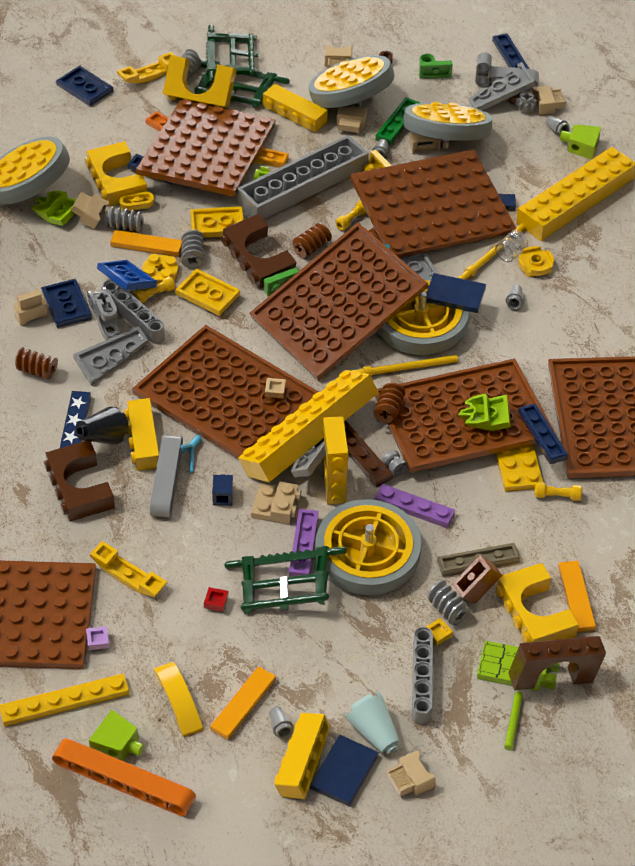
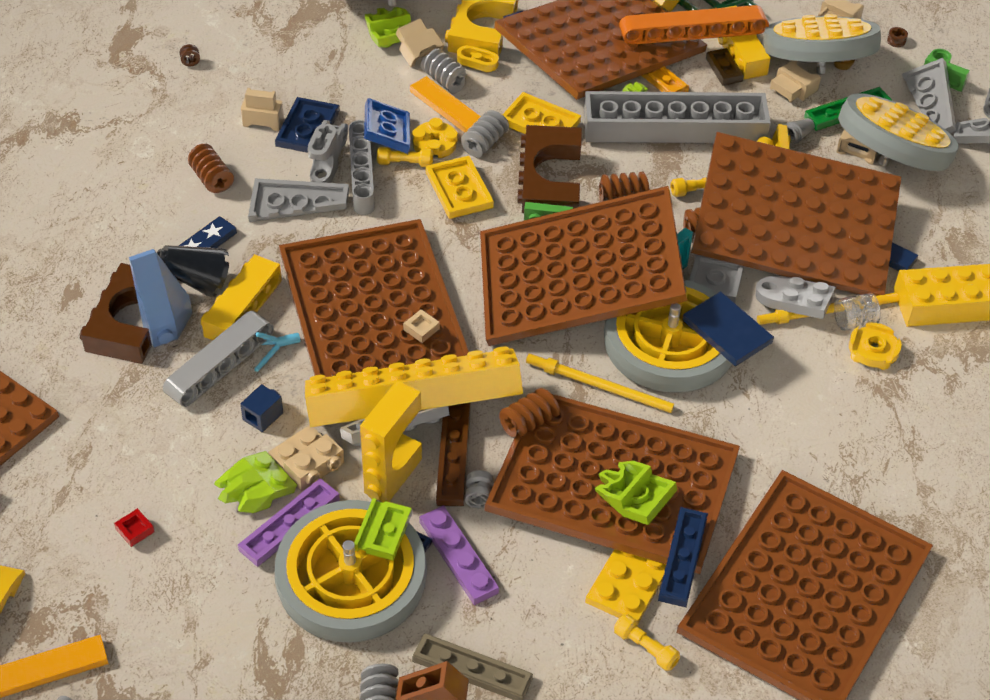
camera: 35 degrees right, 0 degrees up
(102, 459) = (160, 297): none -> medium blue wedge
(126, 572) = (77, 436): yellow slope -> none
(261, 533) = (254, 483): none -> lime plate
(264, 110) = (693, 24): none -> orange beam
(299, 129) = (724, 66): none -> dark brown plate
(320, 578) = (252, 572): dark green piece -> none
(373, 510) = (383, 529): none -> lime plate
(439, 86) = (932, 92): none -> light grey wing
(469, 254) = (795, 295): none -> light grey plate
(515, 297) = (808, 374): light grey cone -> none

